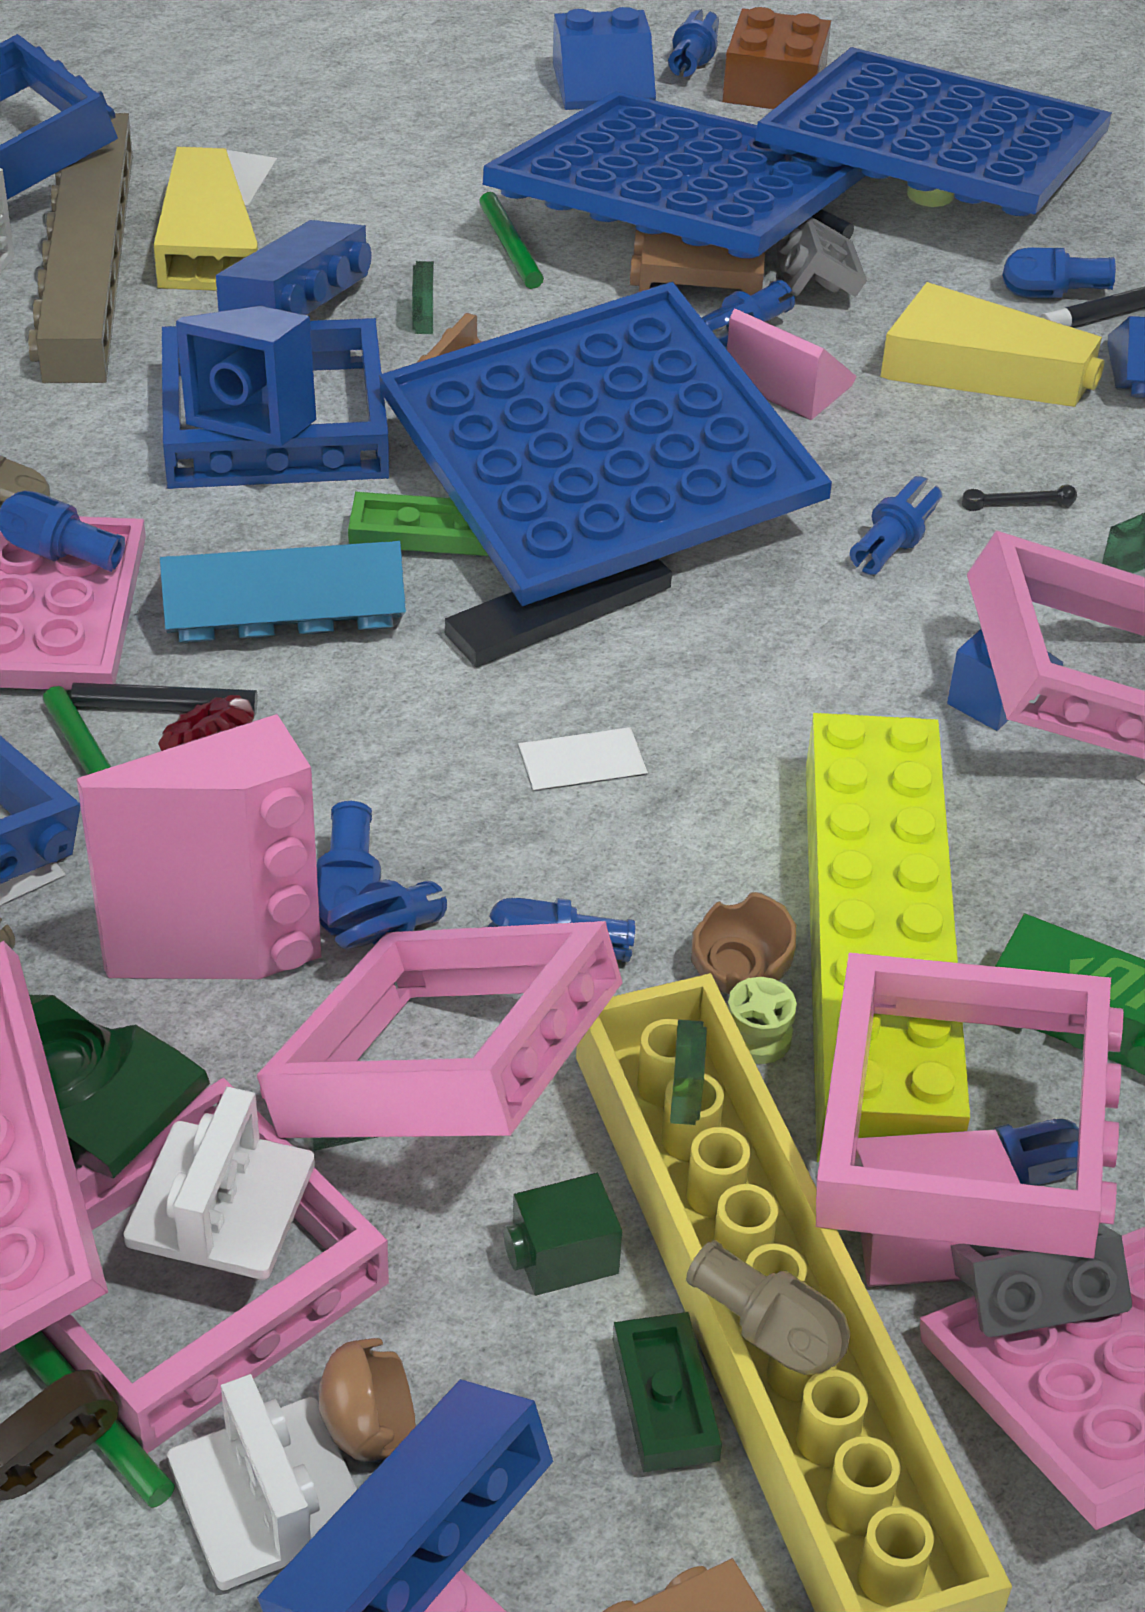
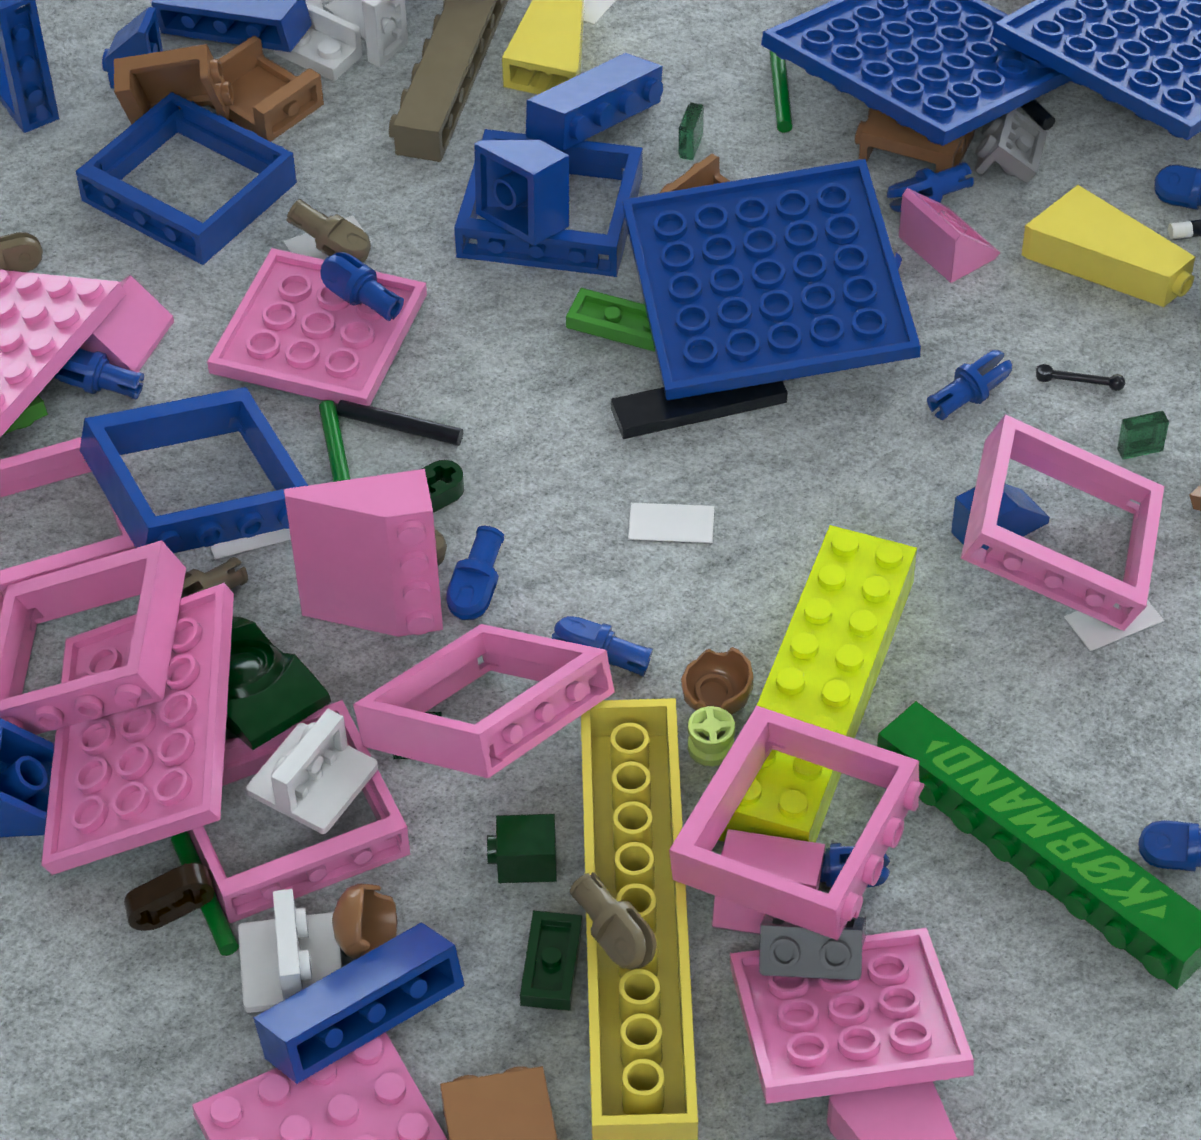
camera: 20 degrees right, 5 degrees up
(207, 720) = (417, 452): dark red gear -> none
(282, 588) = (502, 356): dark azure slope -> none
(386, 908) = (487, 608): blue arm -> none
(688, 1072) = (624, 762): clear green tile -> none

